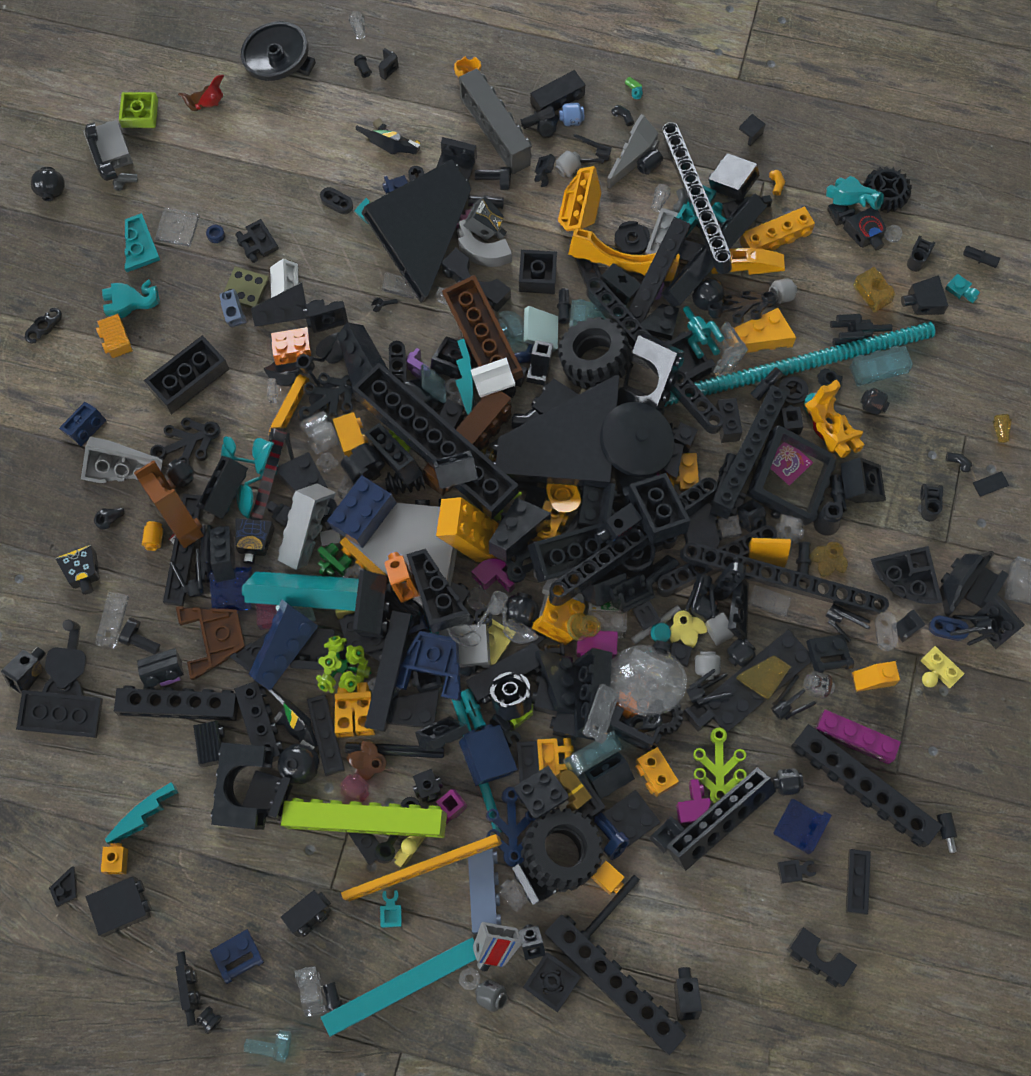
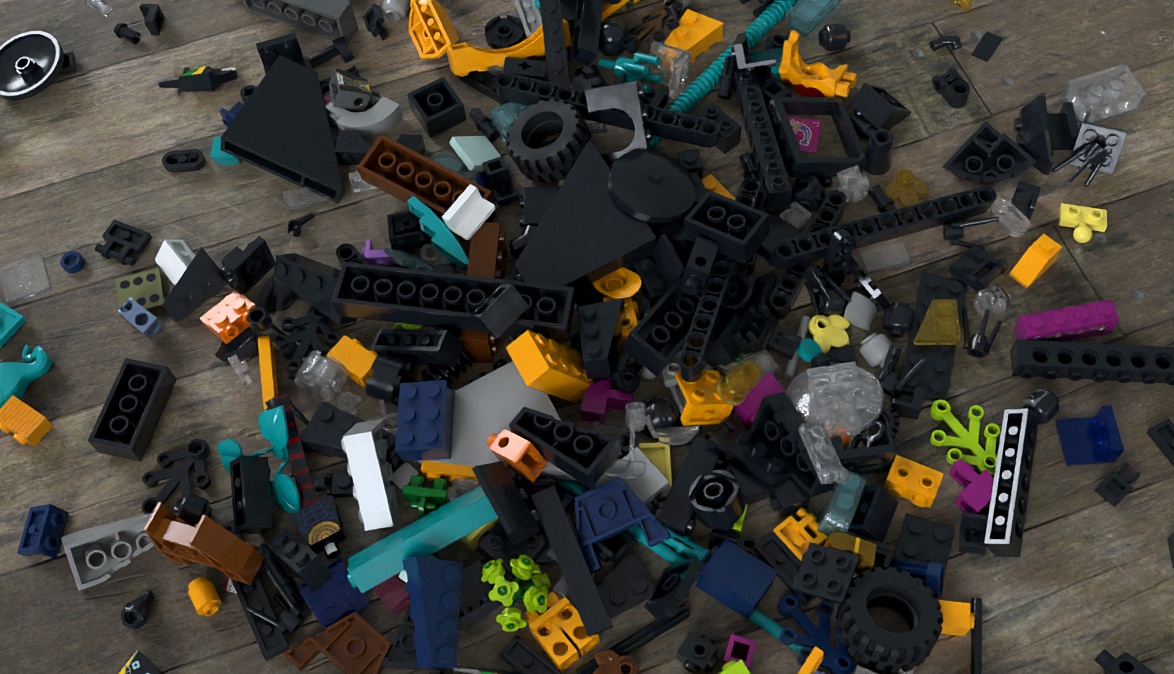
camera: 30 degrees left, 10 degrees down
(770, 550) = (851, 207): light orange slope -> none
(791, 381) = (749, 61): none -> black bracket
(948, 625) = (1058, 182): dark blue plate -> none

